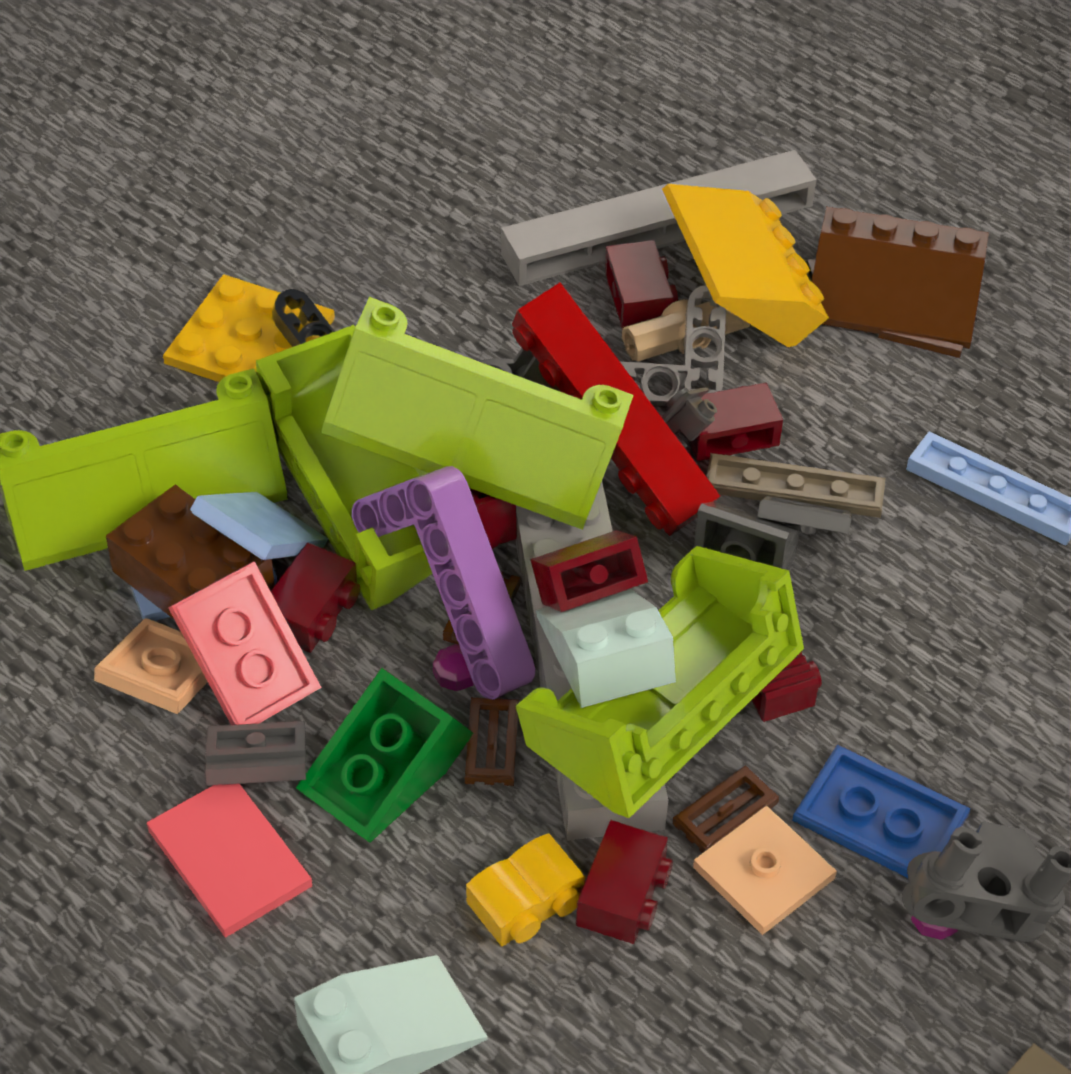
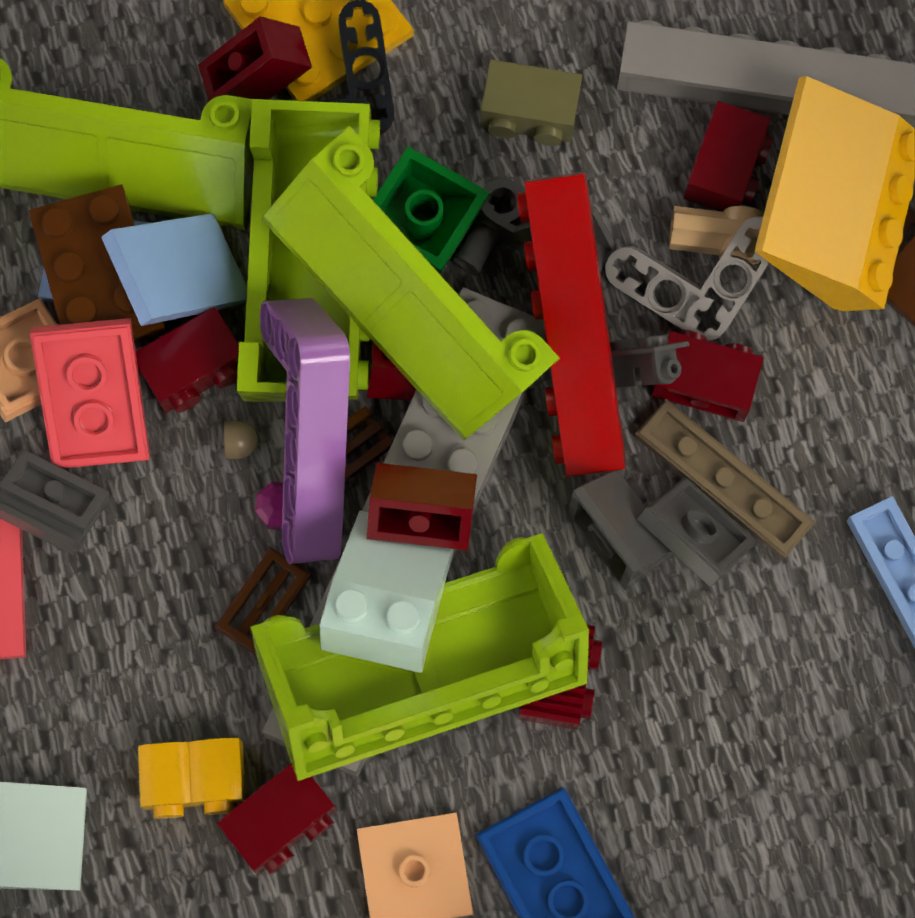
camera: 30 degrees right, 25 degrees up
(225, 352) = (256, 61): none -> dark red brick
(383, 756) = (157, 568): green slope -> none
(390, 632) = (239, 439): none -> dark tan hinge
(462, 312) = (530, 102): none -> olive brick
(696, 834) = (415, 773): reddish brown tile -> none

